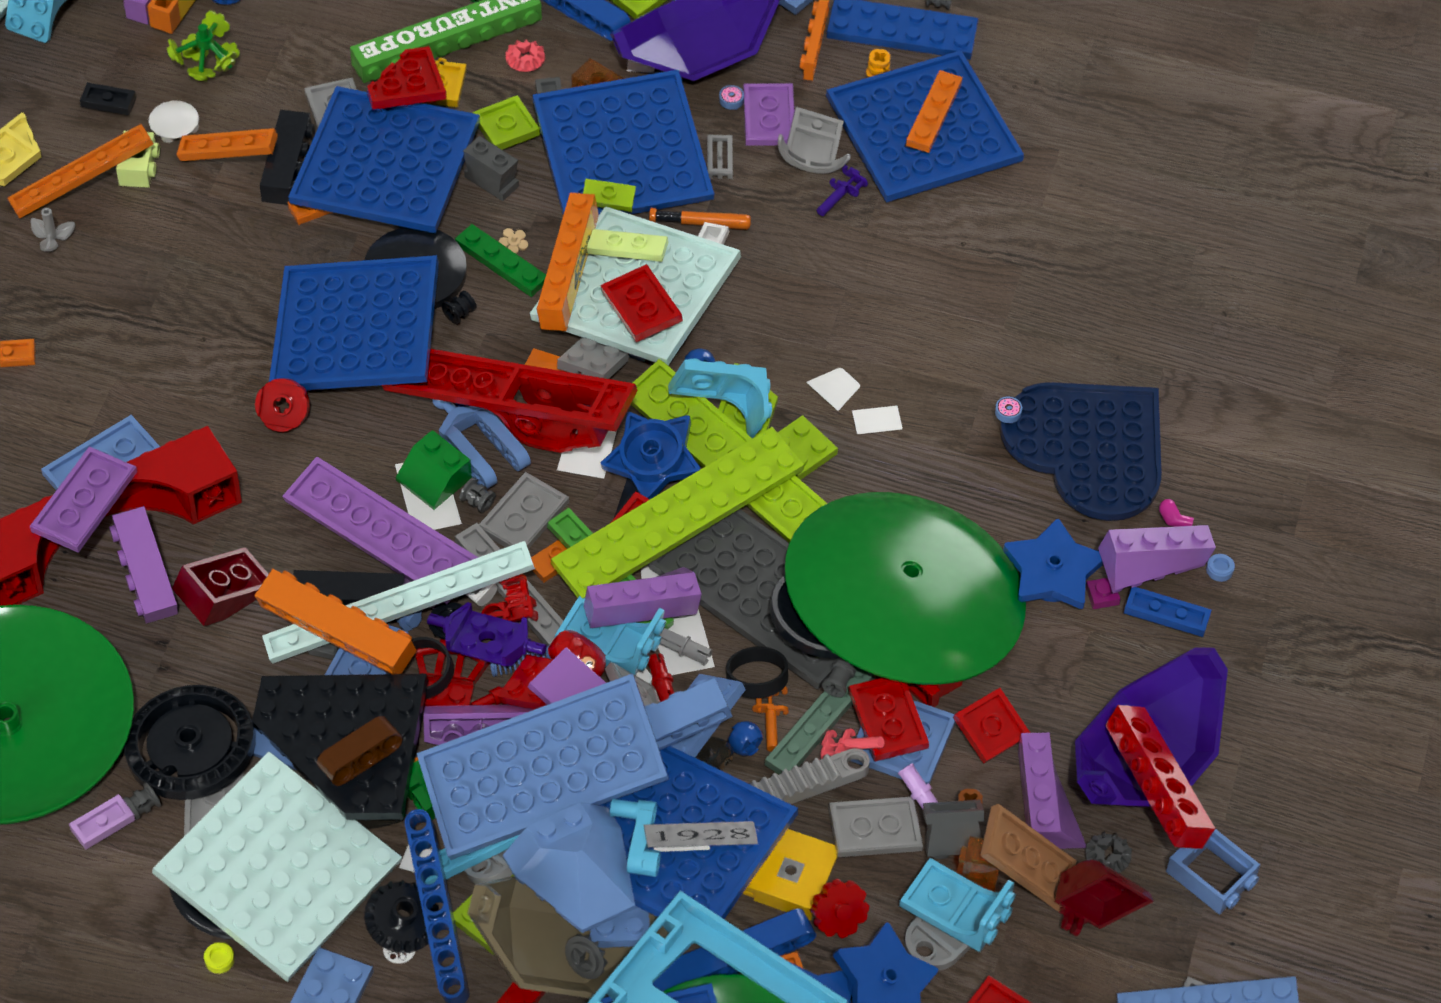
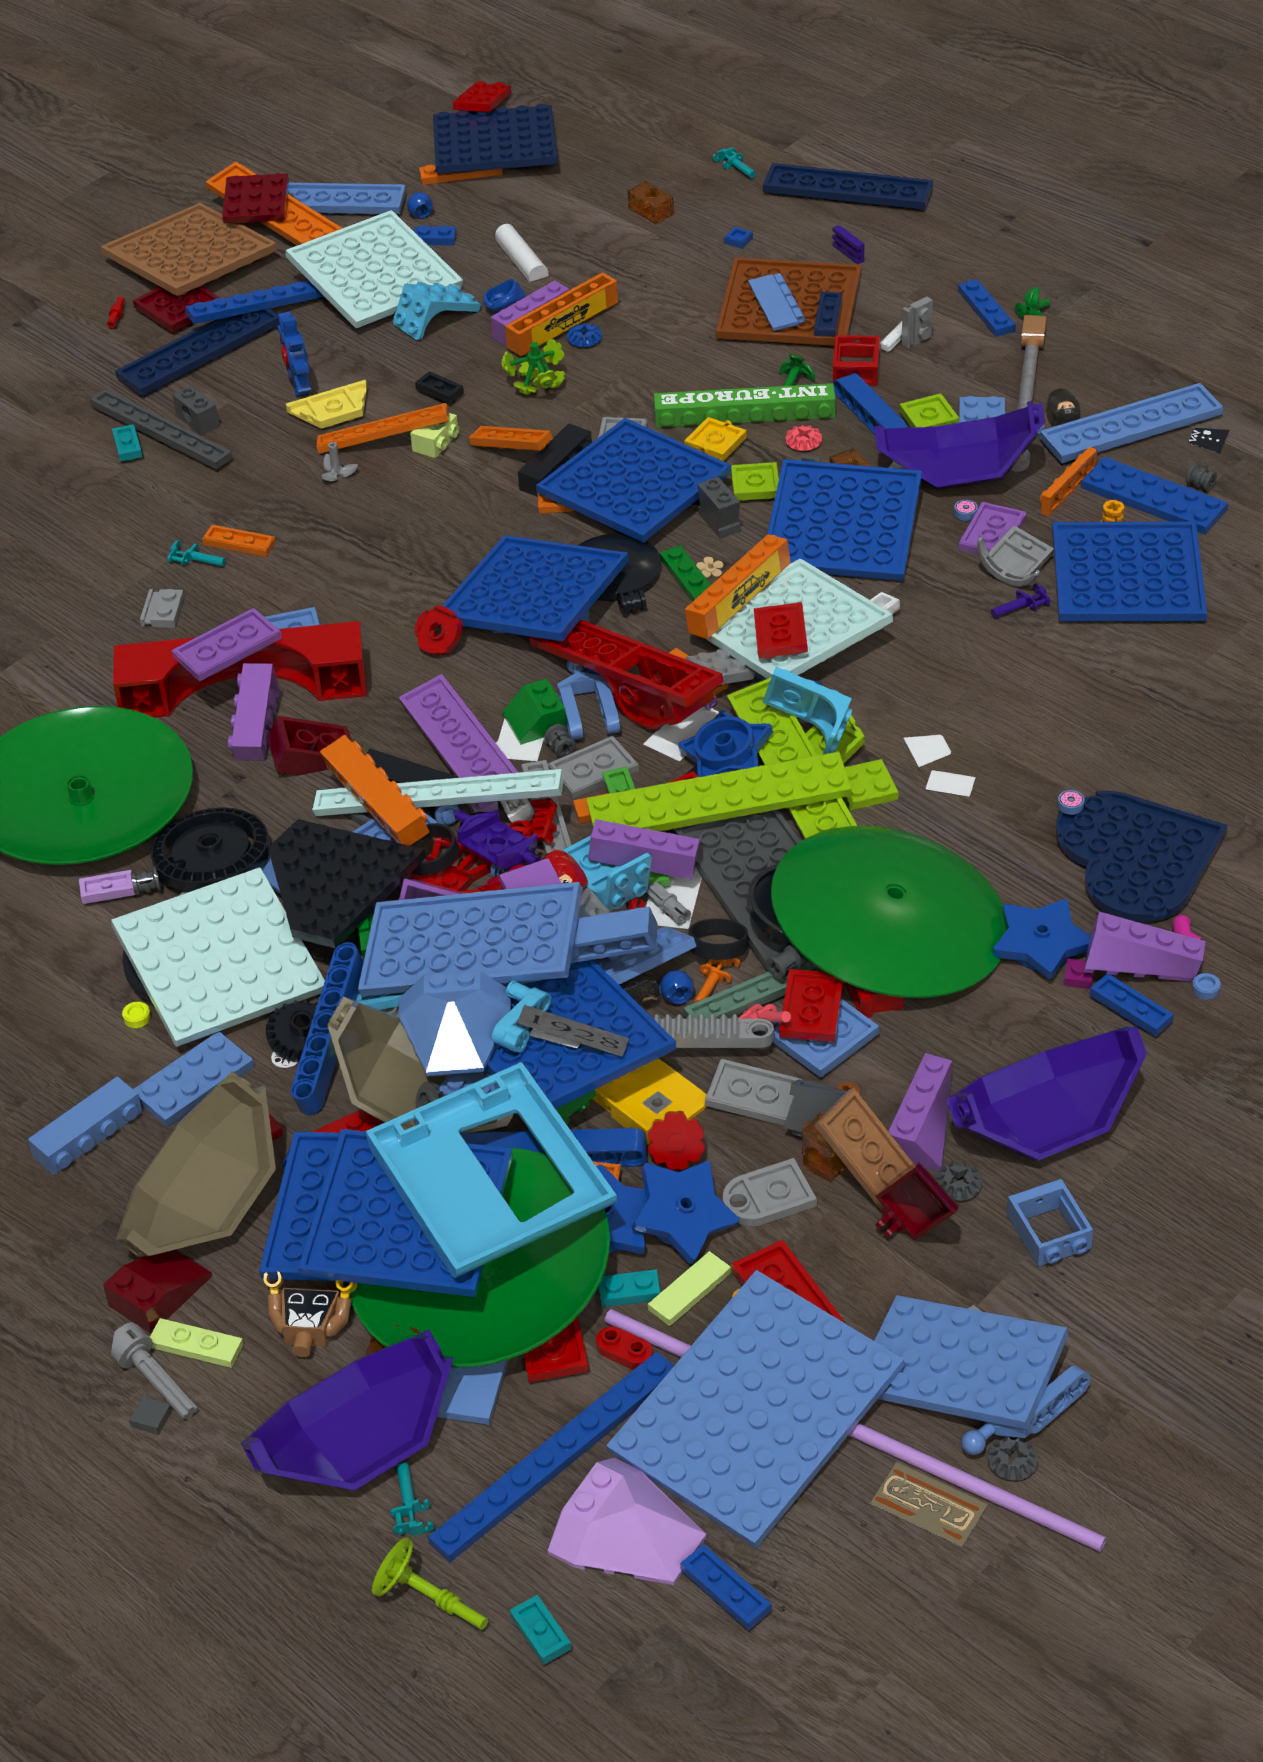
camera: 30 degrees right, 10 degrees down
(173, 120) = (483, 414): white dish -> none
(359, 750) = (339, 879): reddish brown beam -> none
(408, 81) = (686, 427): red plate -> none
(611, 194) = (809, 550): lime plate -> none
(627, 245) = (798, 588): yellowish green plate -> none
(719, 171) = (914, 559): light grey tile -> none
(733, 221) = (906, 598): orange piece -> none
(917, 786) = (806, 1064): lavender pin -> none
(934, 111) = (1140, 560): orange plate -> none
(958, 904) = (786, 1171): medium azure bracket -> none
(991, 725) = (904, 1042): red plate -> none
(1160, 777) = (1033, 1126): red brick -> none

